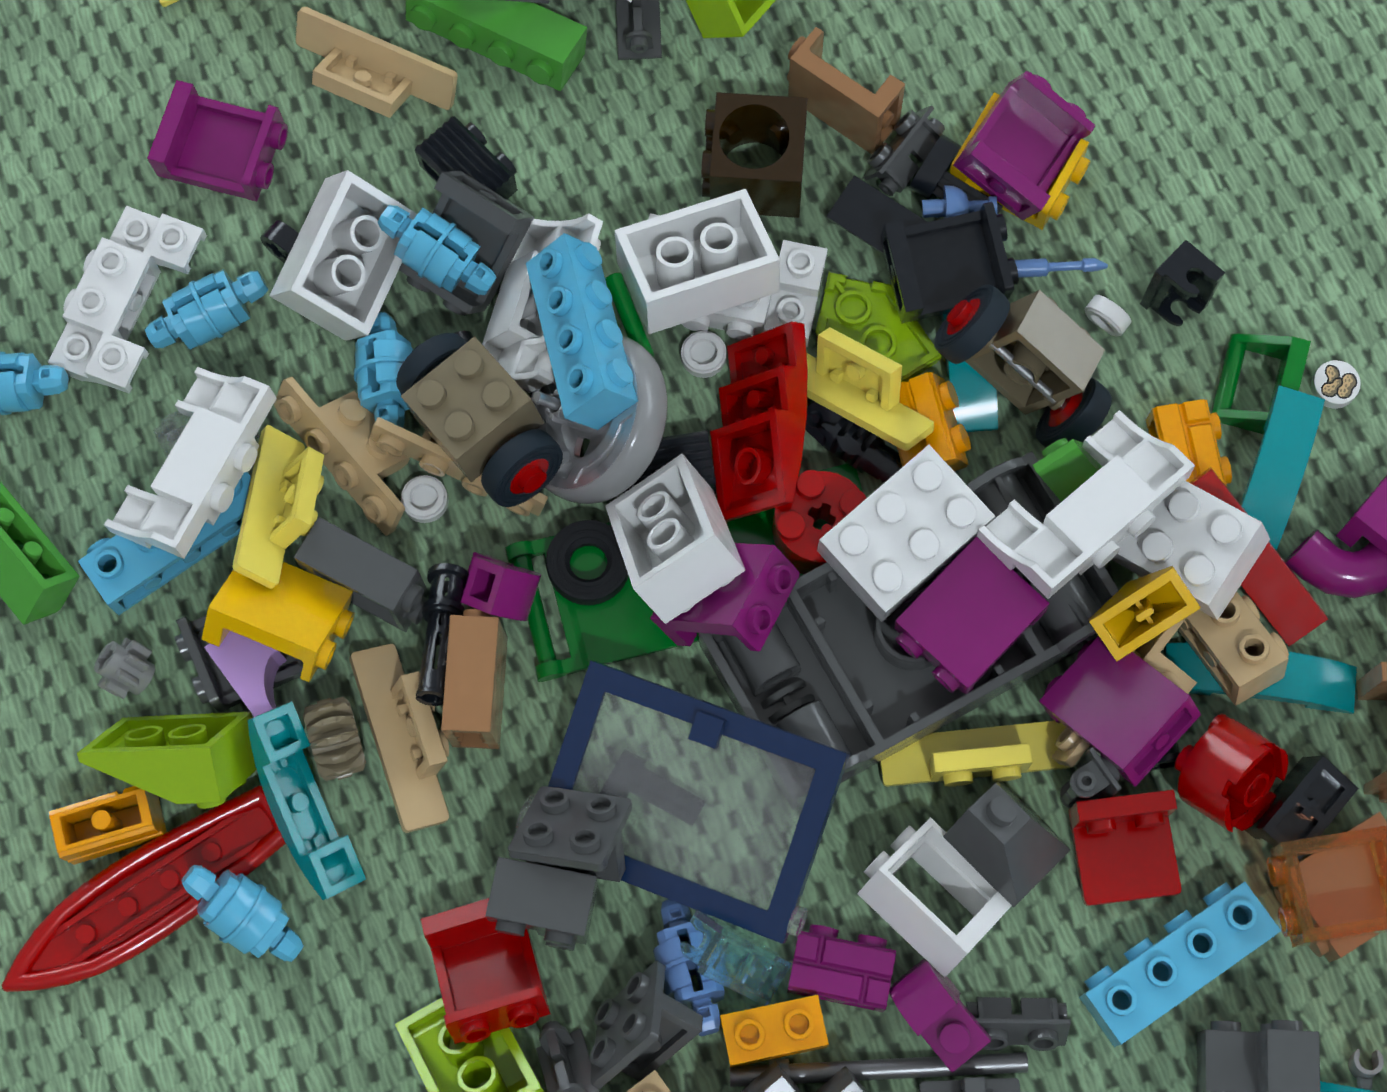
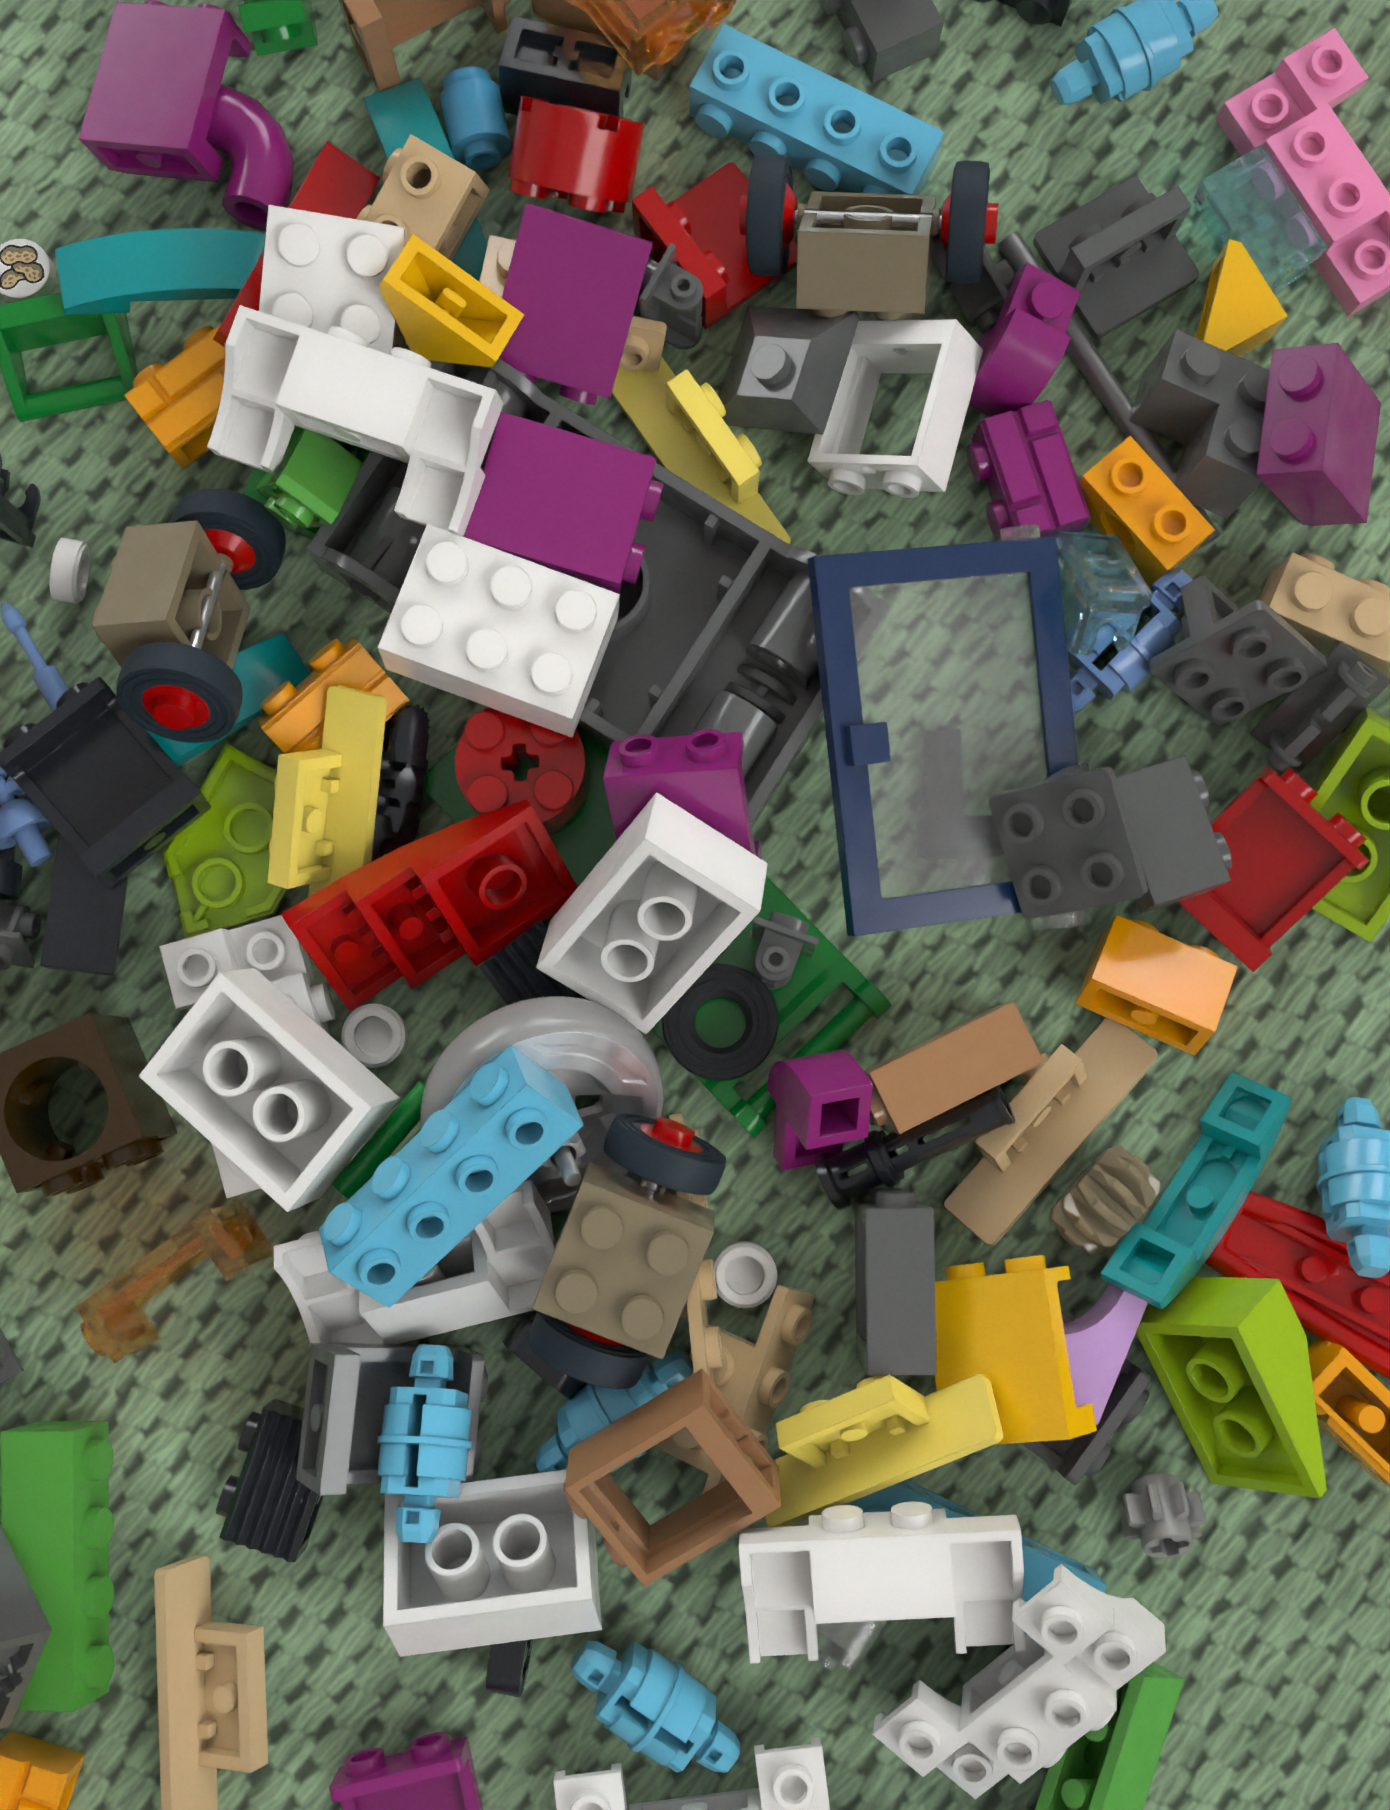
camera: 125 degrees left, 10 degrees up
(71, 519) = (1032, 1701): none -> white bracket
(339, 412) = (739, 1501): none -> medium nougat window
(451, 854) = (1157, 984): none -> light orange brick
(610, 613) = (780, 947): none -> dark grey hinge
(613, 121) = (114, 1314): none -> clear orange panel
(1063, 933) = (865, 246): none -> brick
(1300, 729) = (474, 118): none -> dark azure brick

